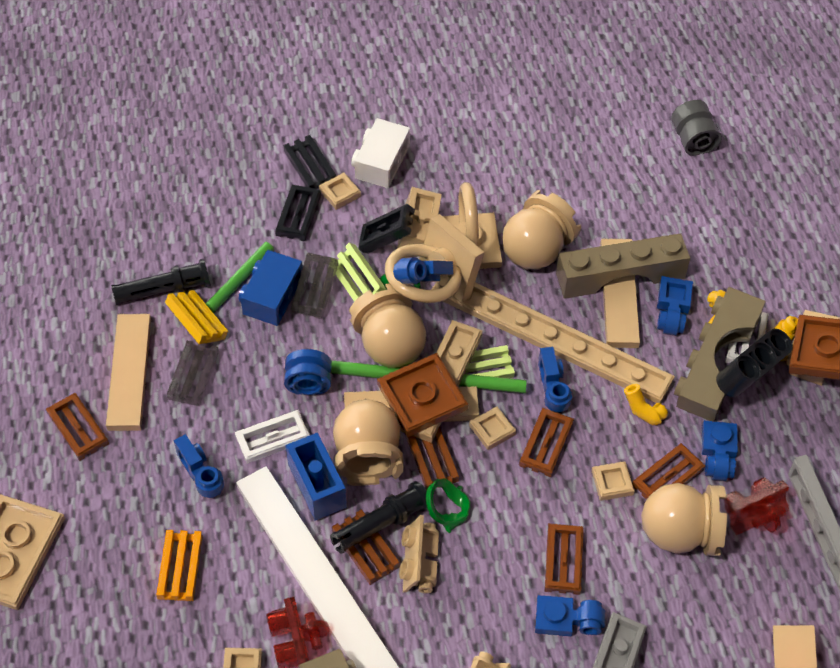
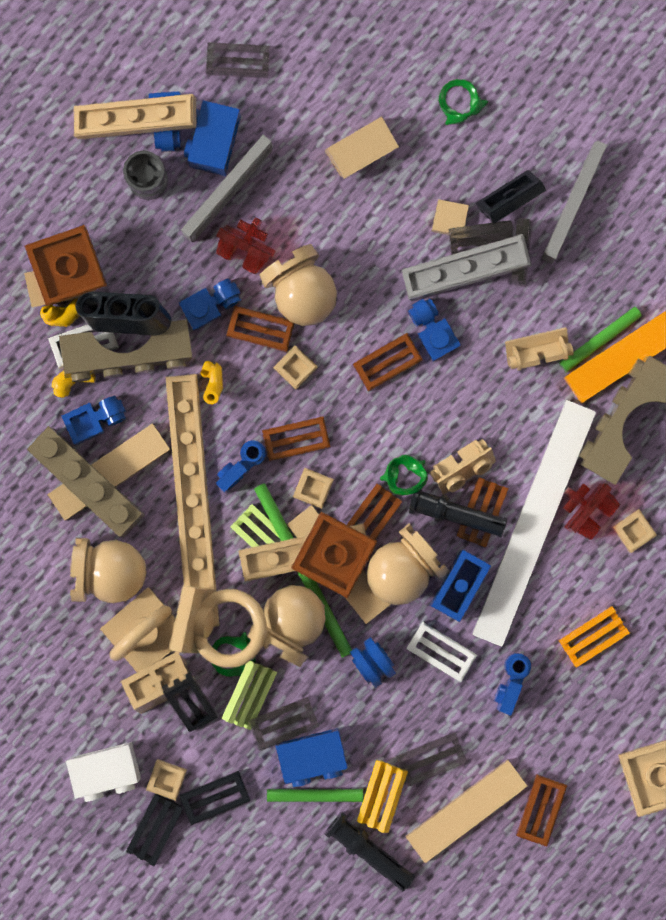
camera: 125 degrees left, 30 degrees up
(414, 270) = (232, 627): blue plate -> none

